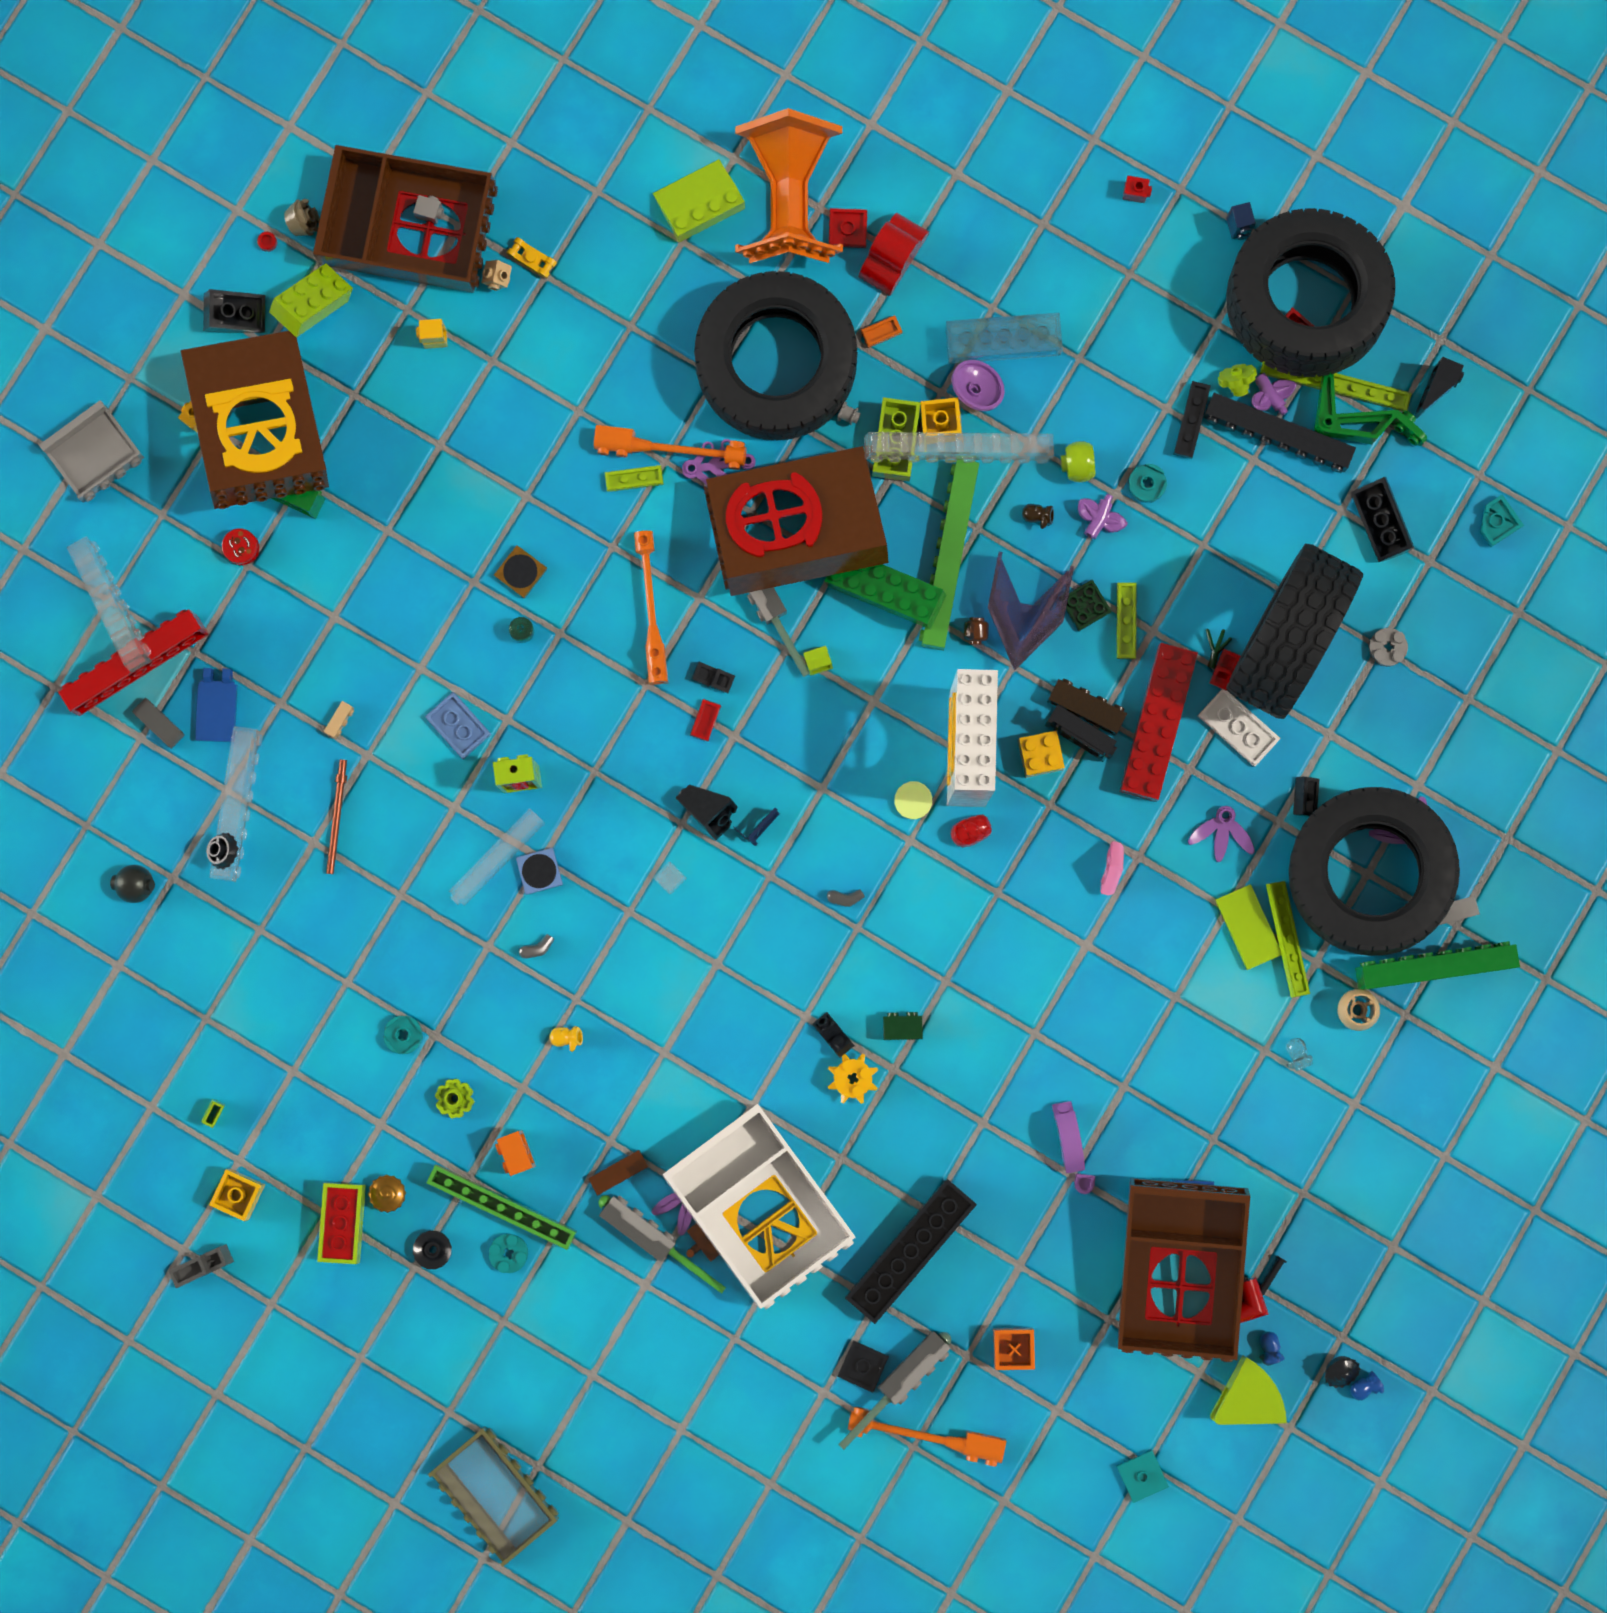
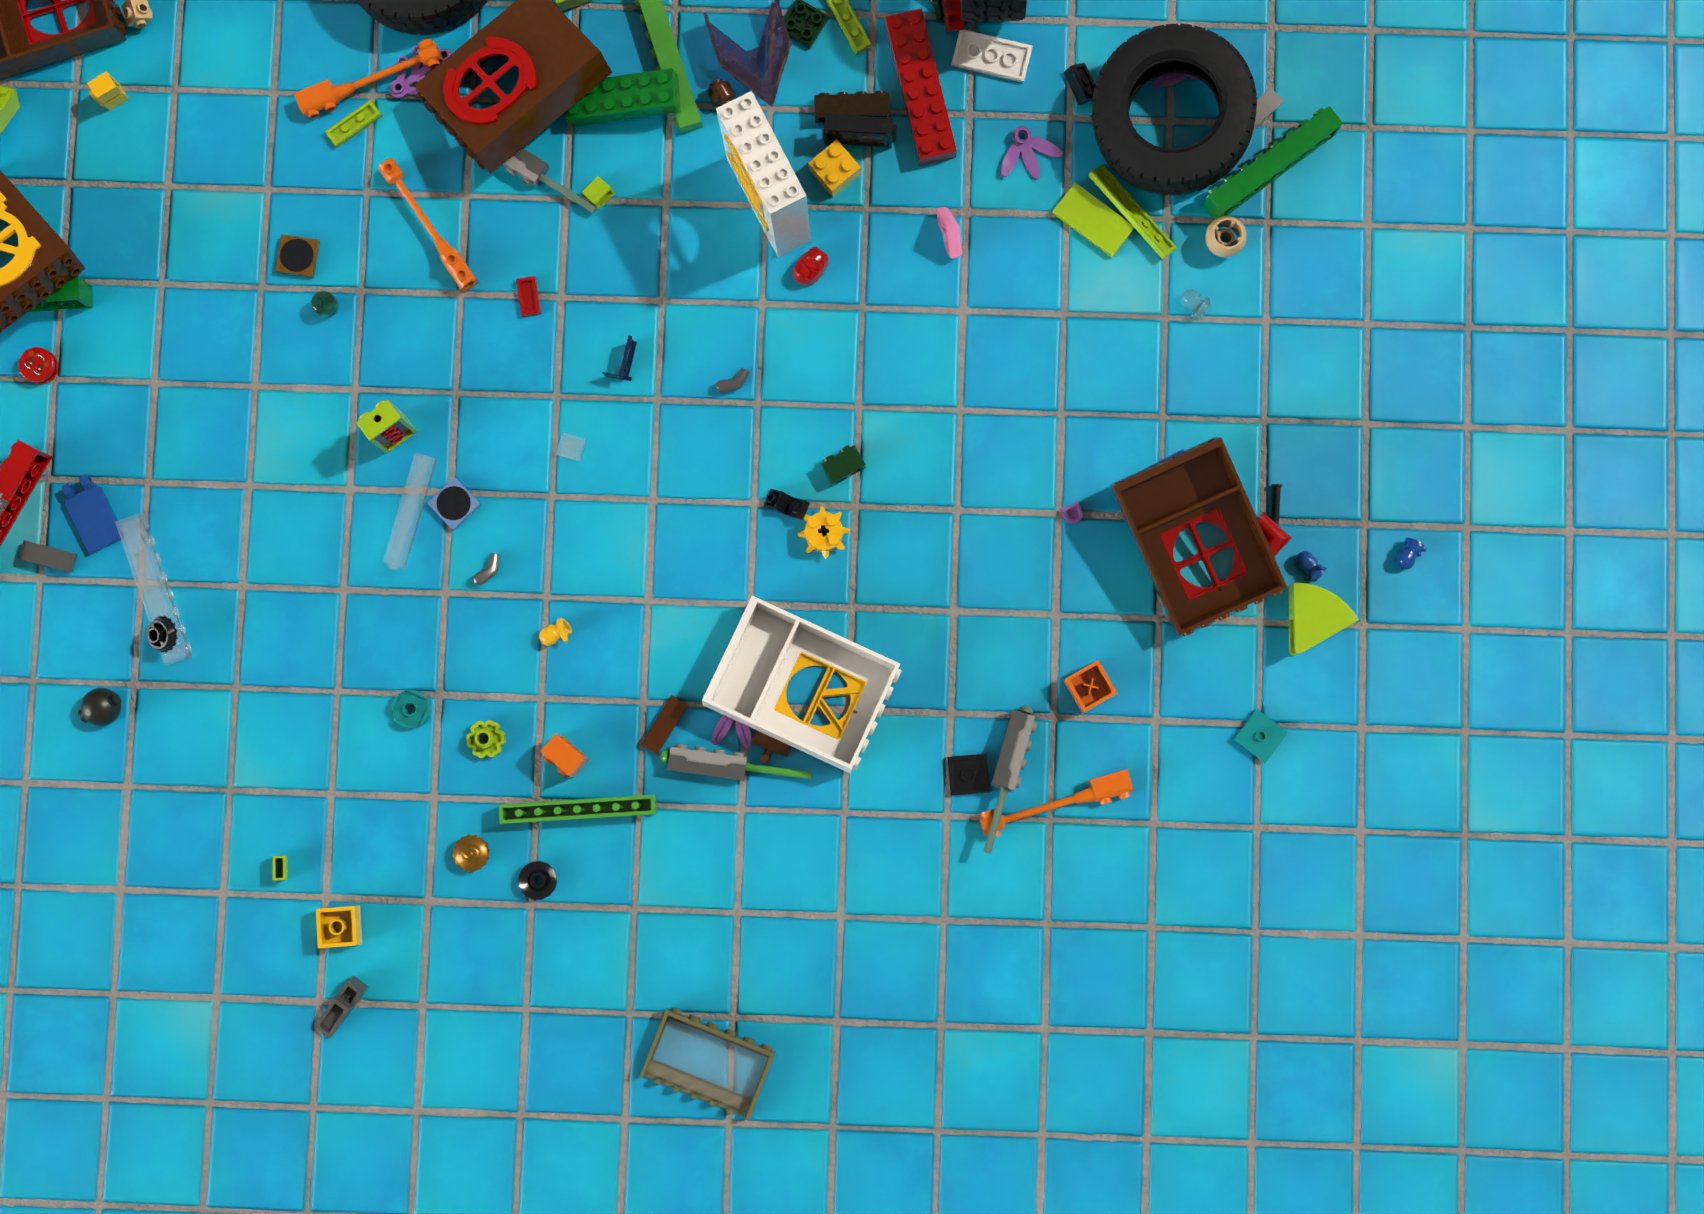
camera: 25 degrees left, 0 degrees up
(339, 720) = (207, 468): tan piece -> none
(340, 779) = (236, 518): copper bar -> none
(341, 1223) = (444, 900): red brick -> none
(458, 725) = (314, 417): medium blue tile -> none
(503, 1263) = (595, 848): teal plate -> none
(708, 809) = (572, 369): black slope -> none
(713, 677) = (514, 257): black slope -> none
(910, 1251) = (955, 651): black brick -> none
(913, 800) = (746, 267): yellowish green tile -> none
(1069, 1137) = (1039, 480): medium lavender arch -> none
(1341, 1371) = (1381, 552): black piece -> none

